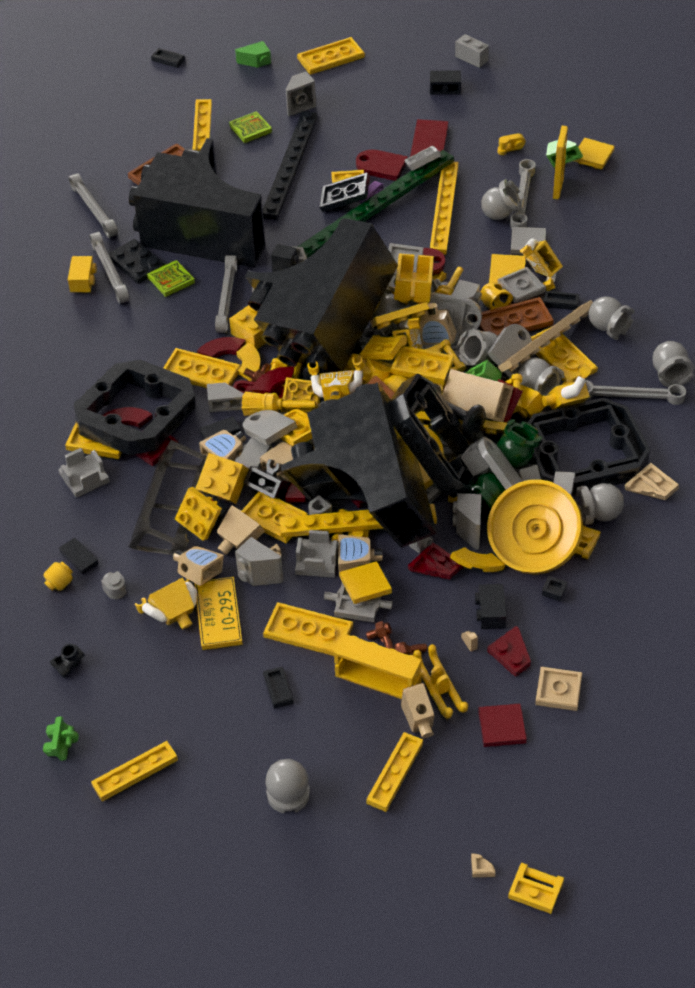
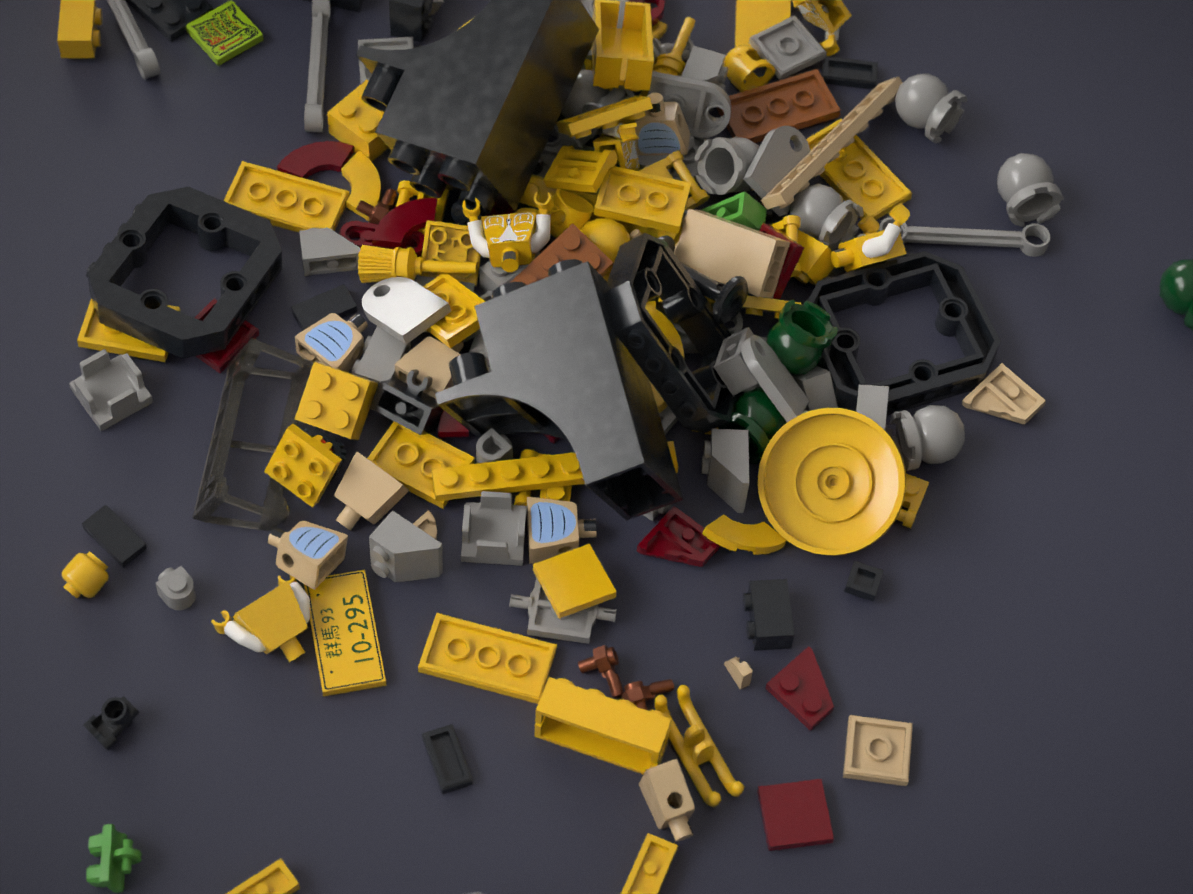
camera: 10 degrees left, 10 degrees up
(132, 416) = (176, 285): dark red tile -> none

